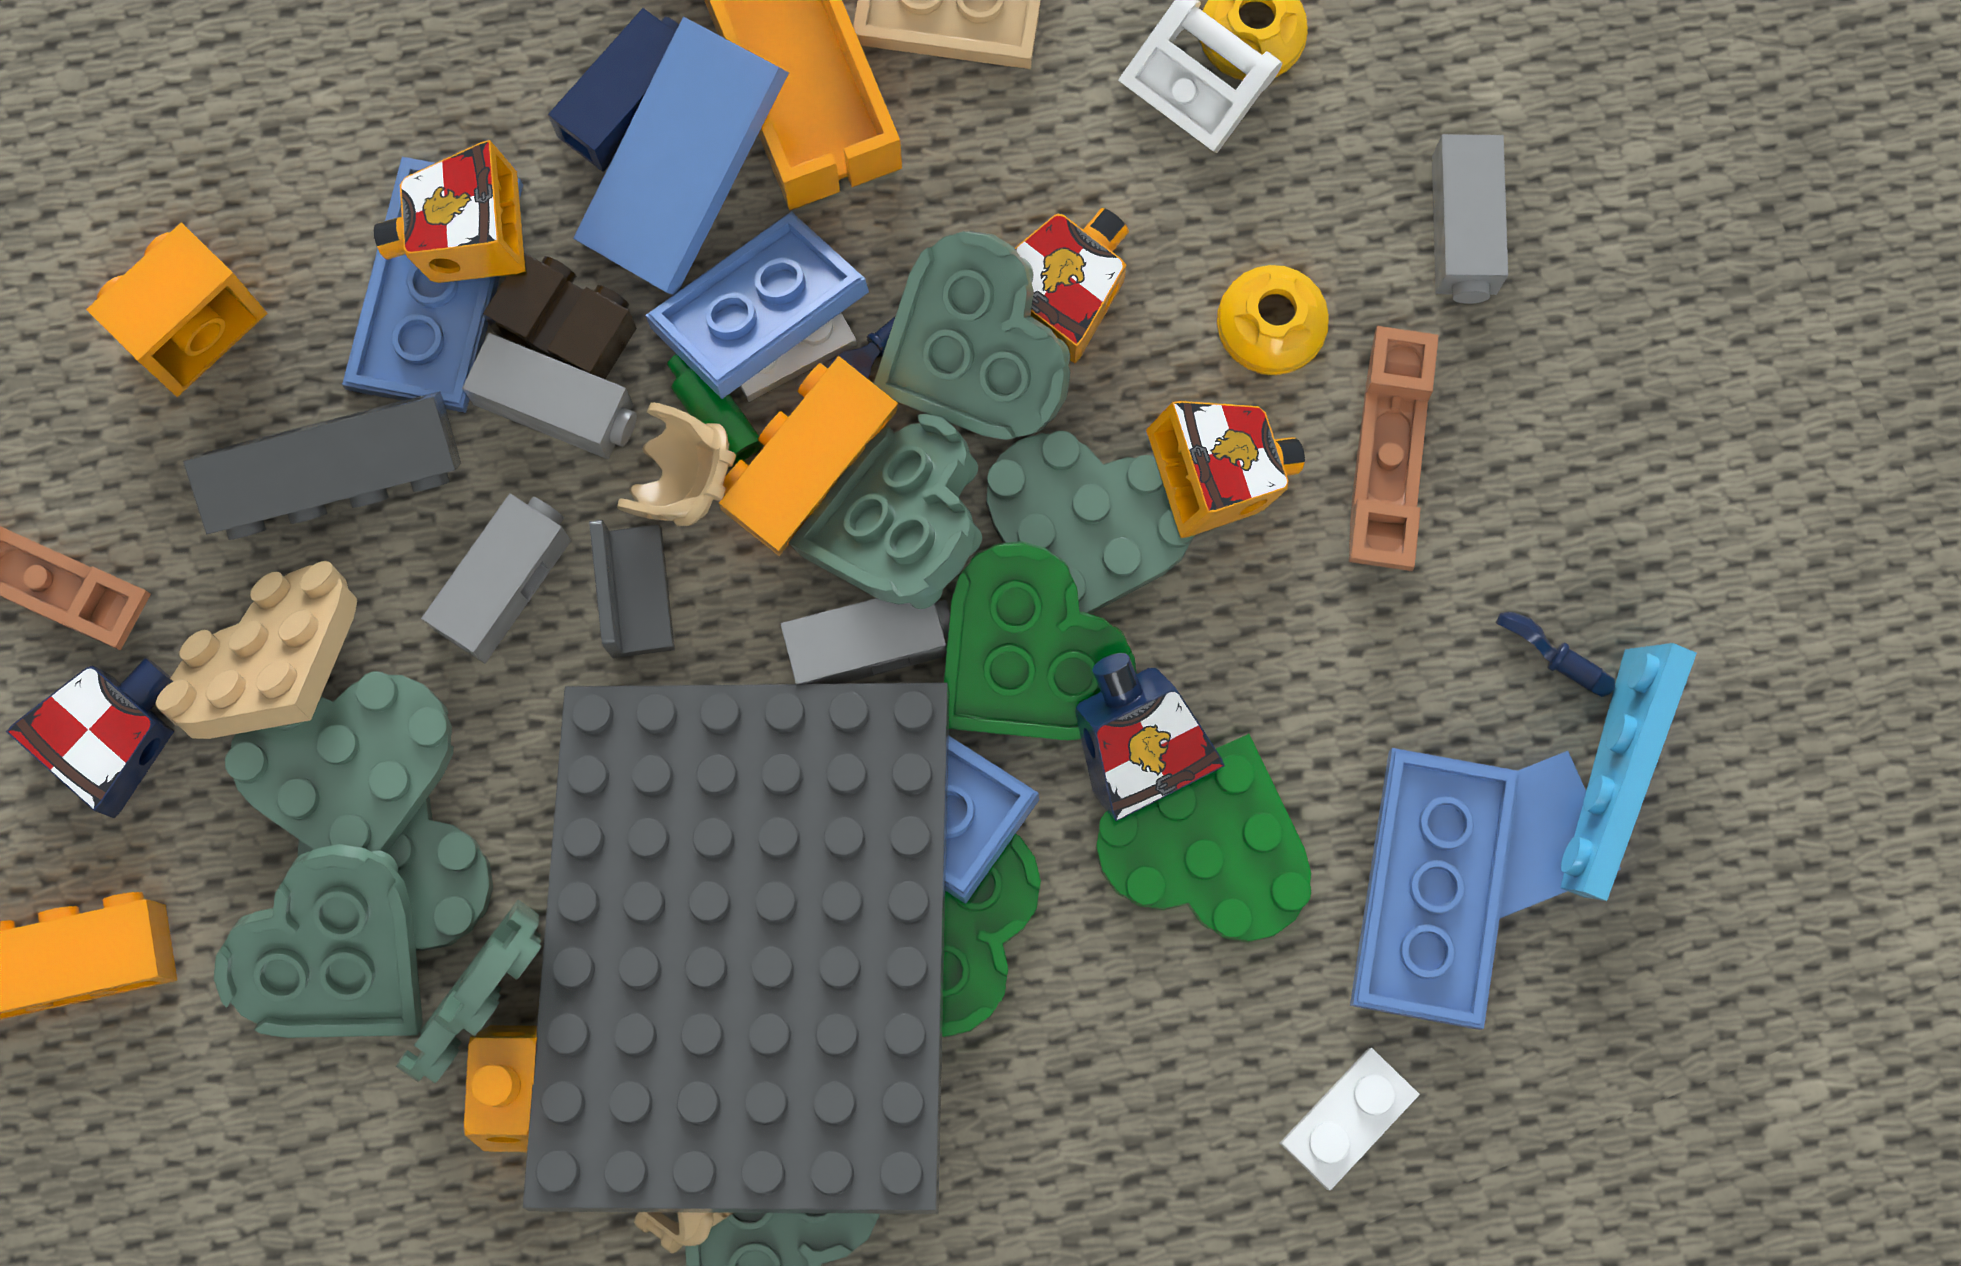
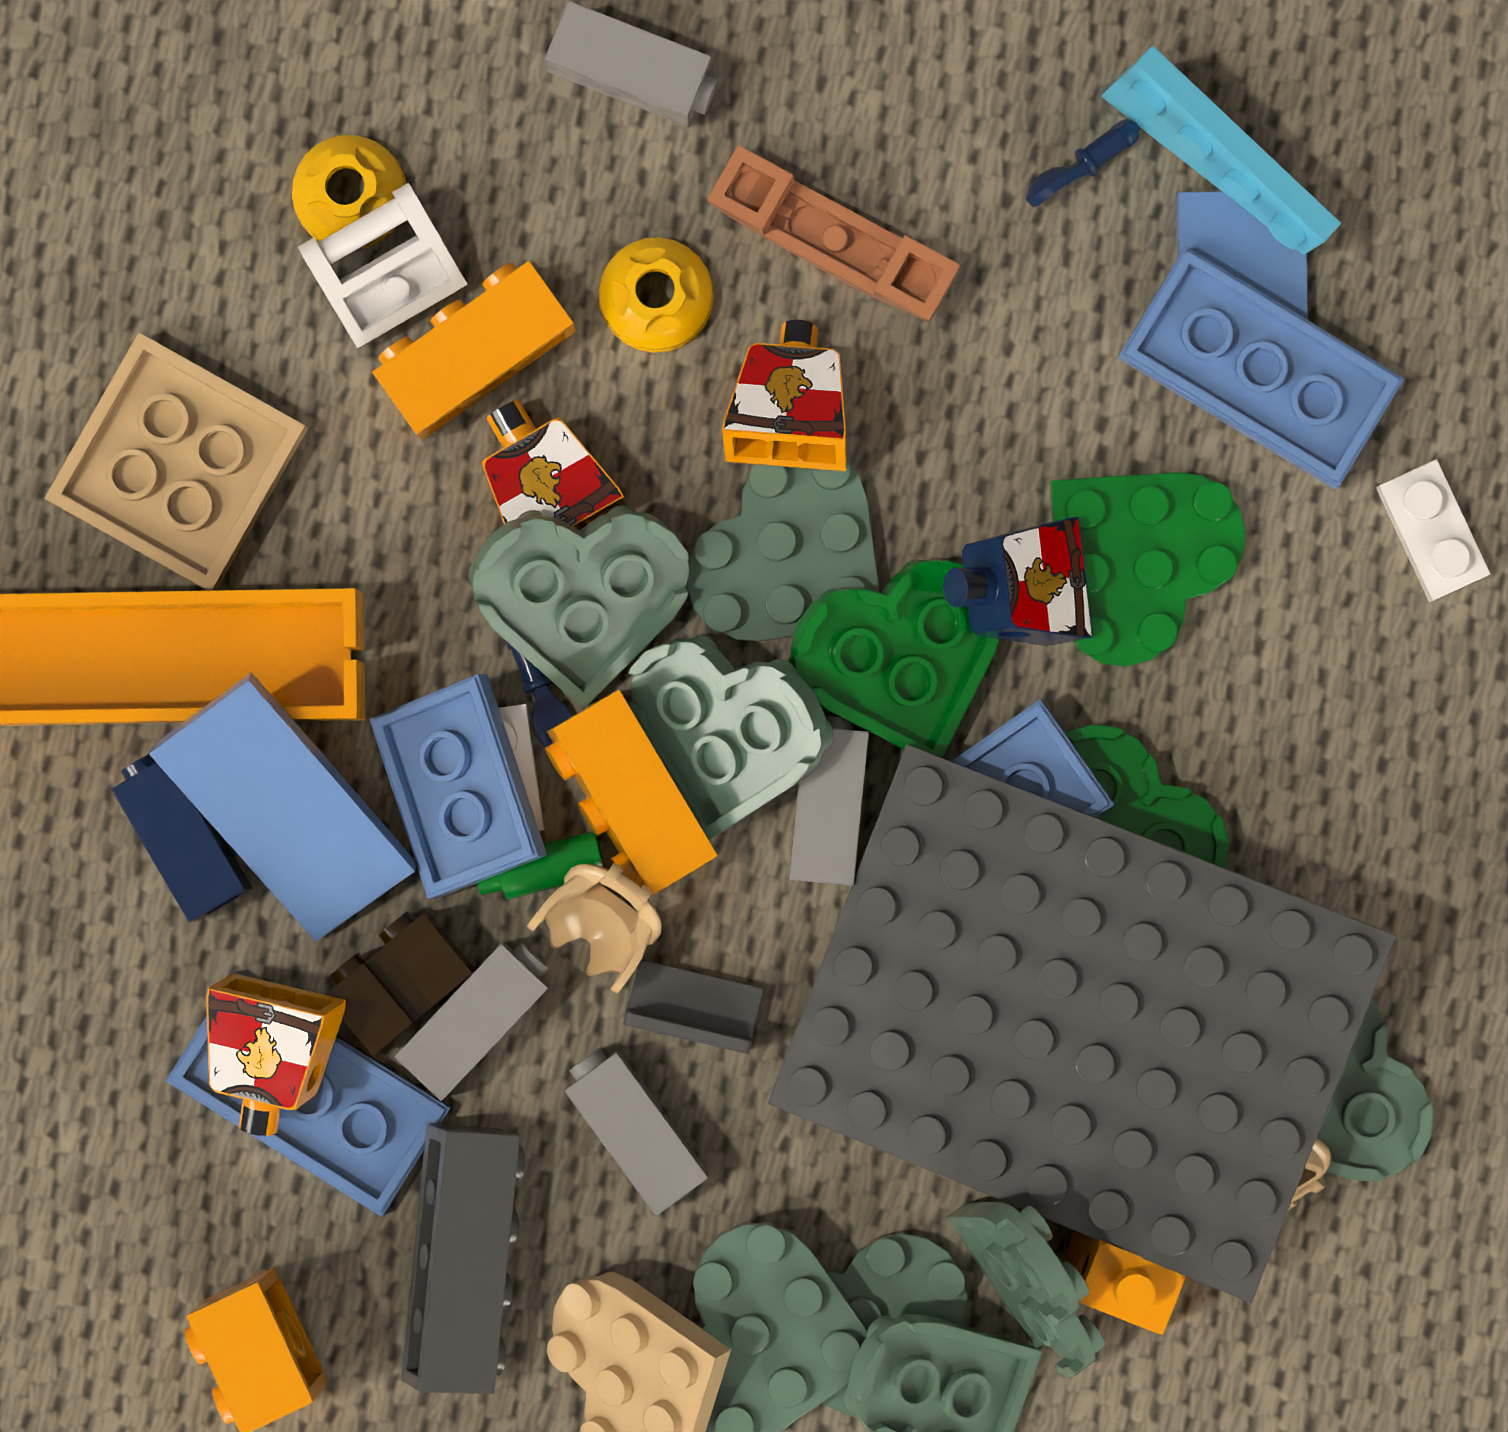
camera: 70 degrees left, 10 degrees up
(1157, 176) = (473, 348): none -> light orange brick

